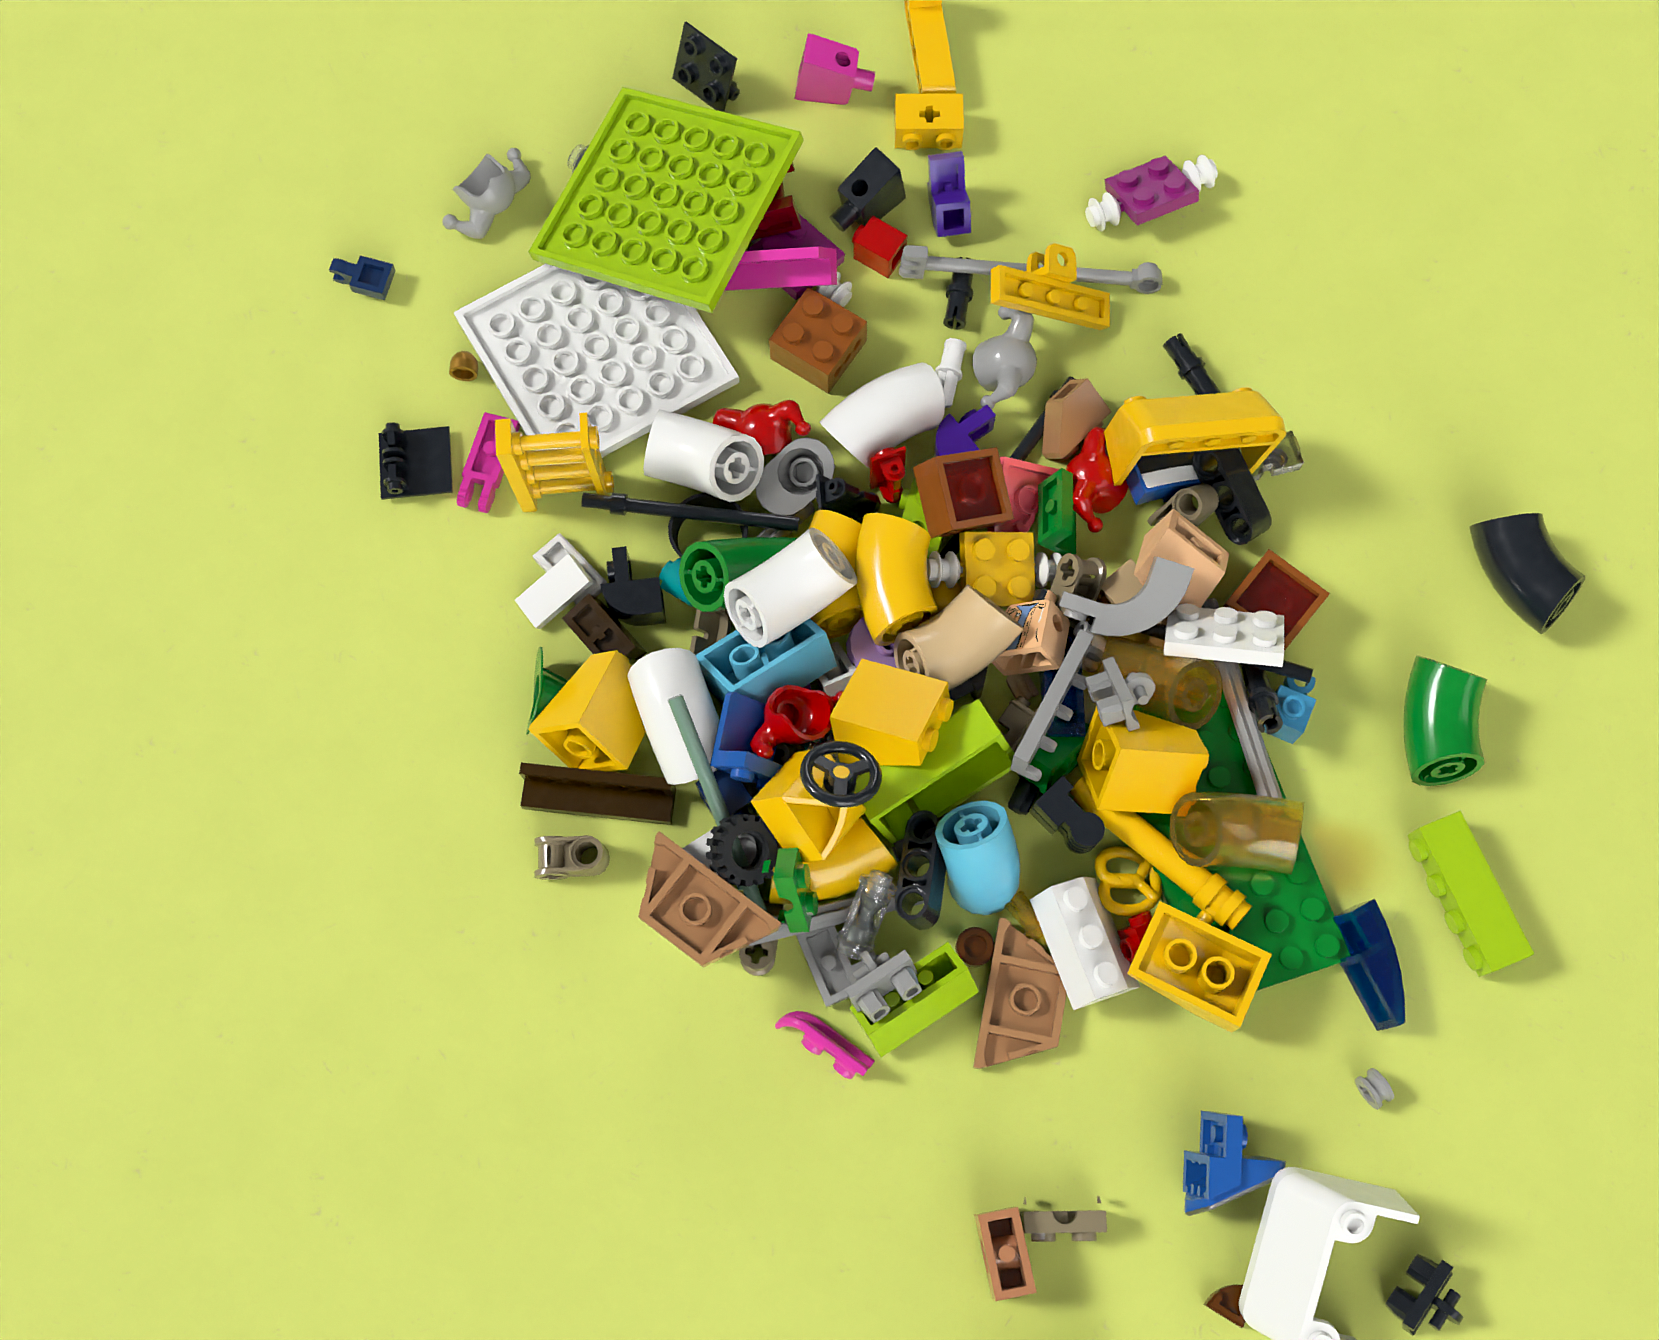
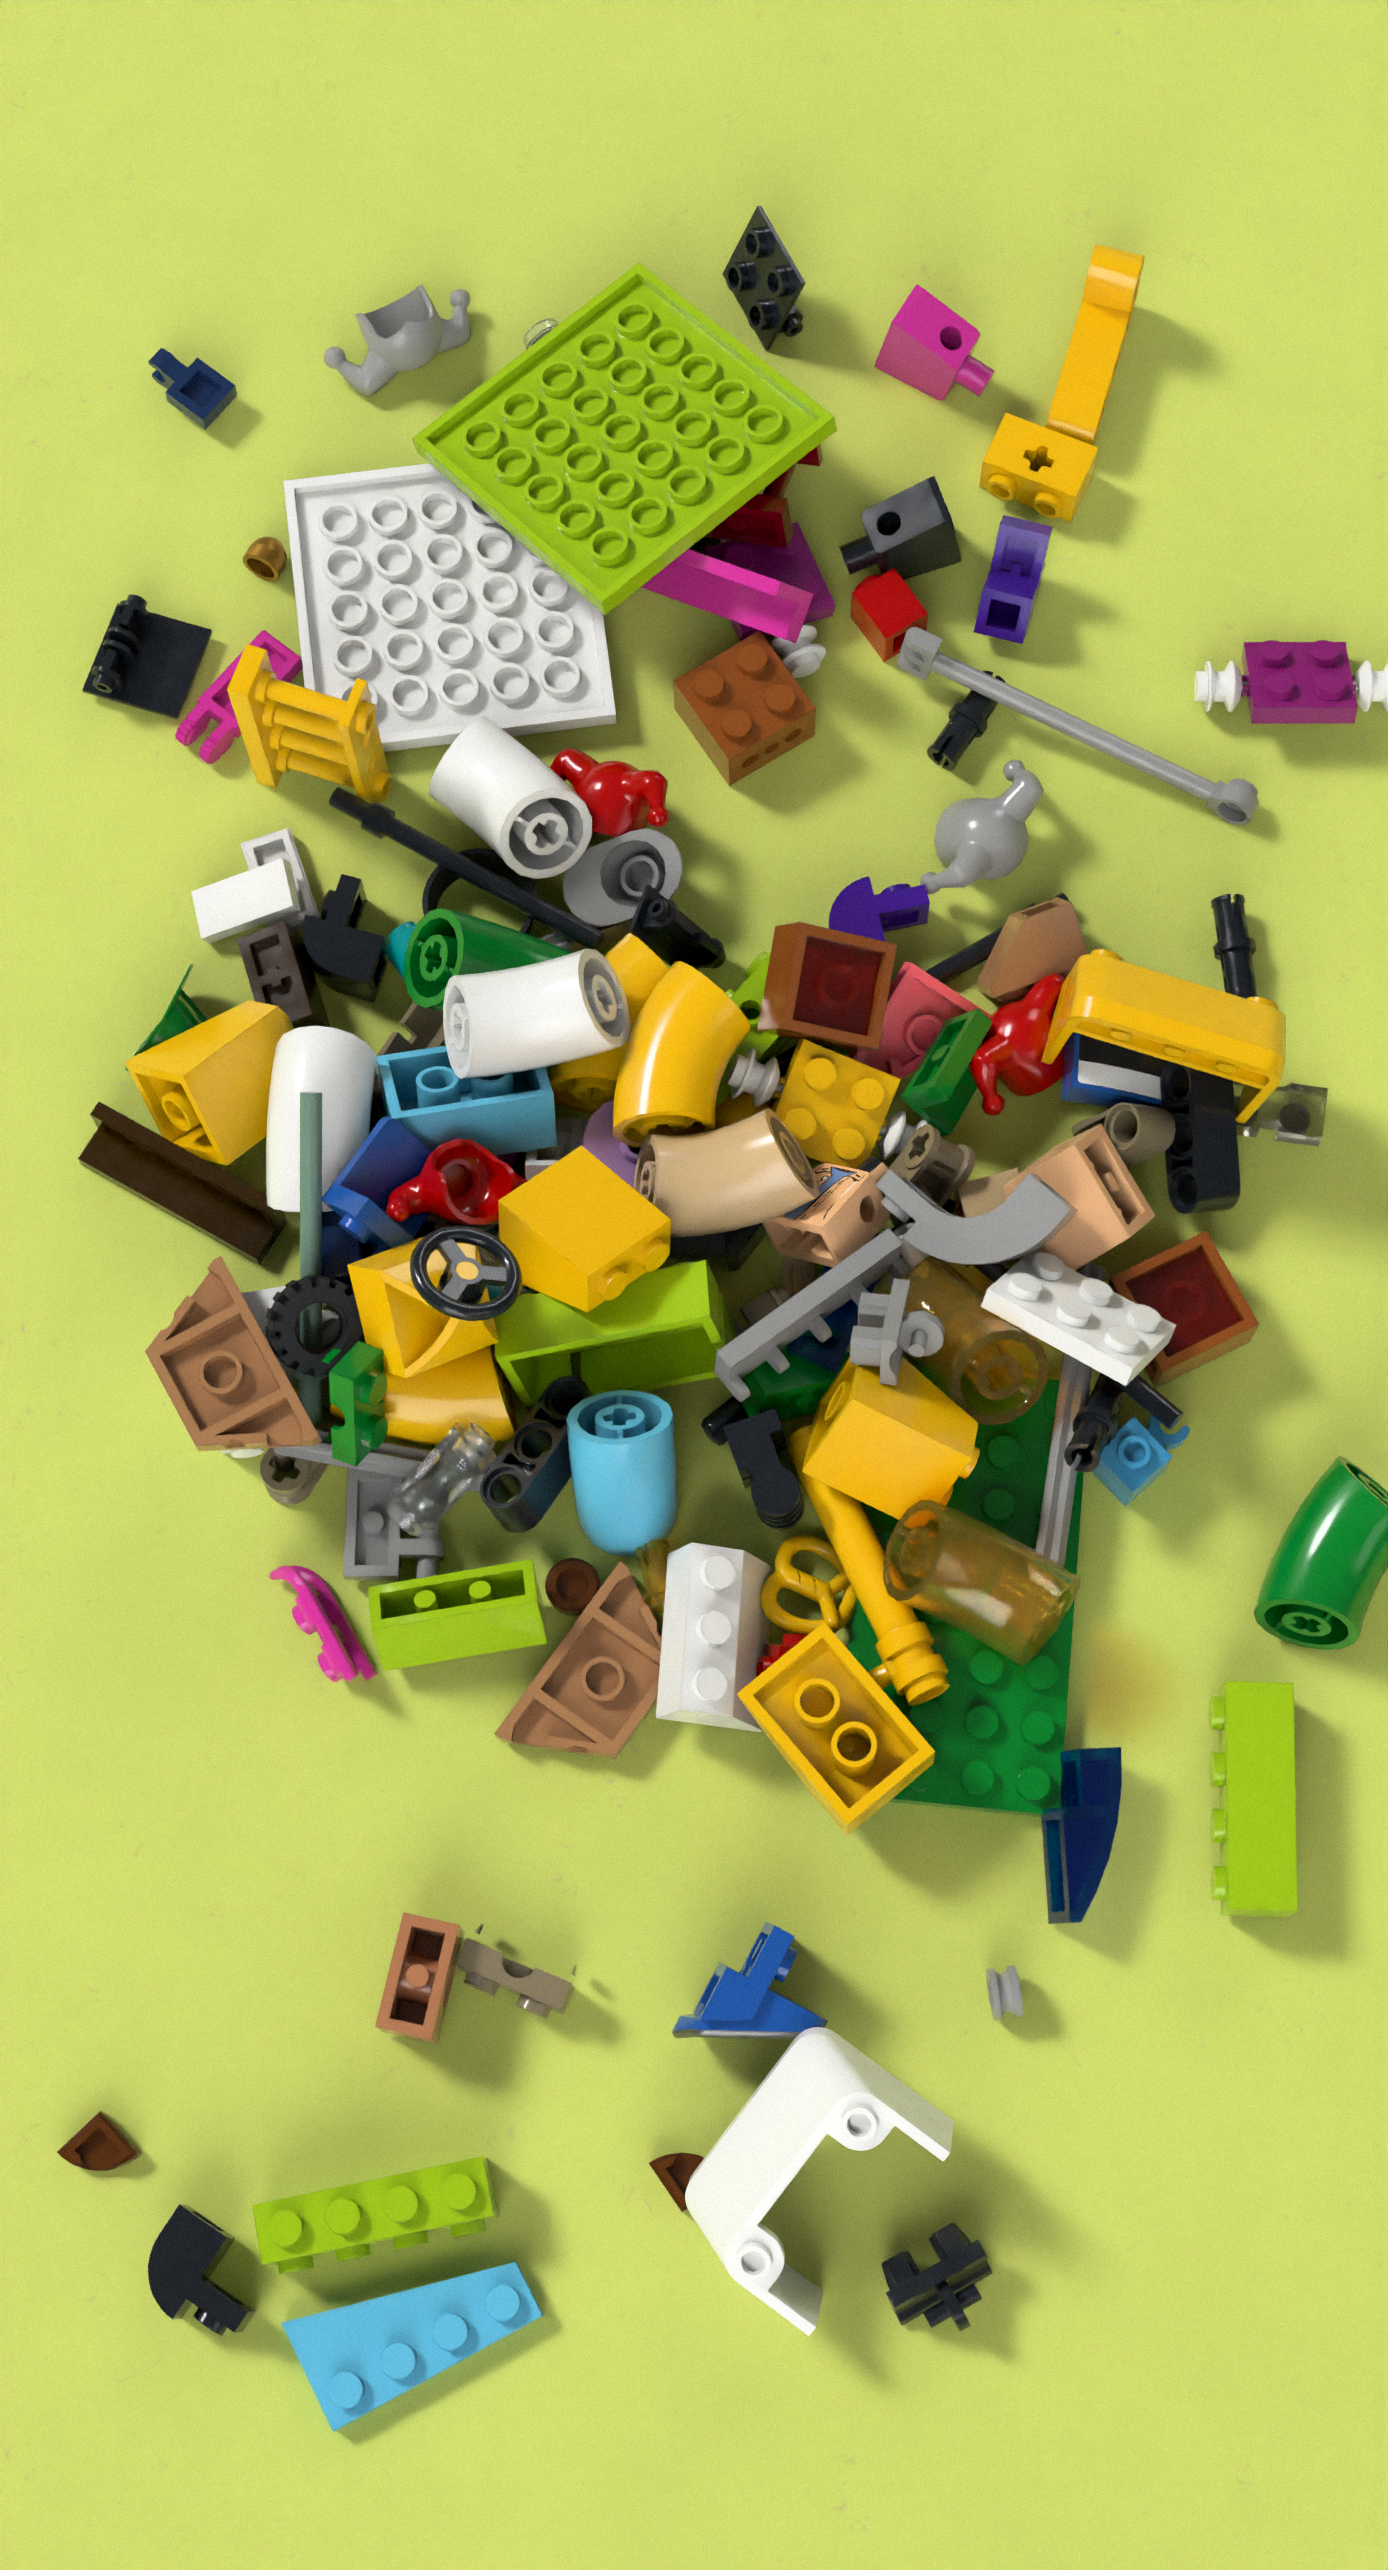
camera: 25 degrees right, 0 degrees up
(561, 857) = (101, 1246): dark tan piece -> none
(879, 978) = (417, 1566): light grey hips -> none
(887, 411) = (781, 841): white brick -> none
(887, 471) = (751, 919): red hinge -> none
(949, 368) = (900, 822): white axle -> none
(1049, 291) = (1080, 765): yellow plate -> none

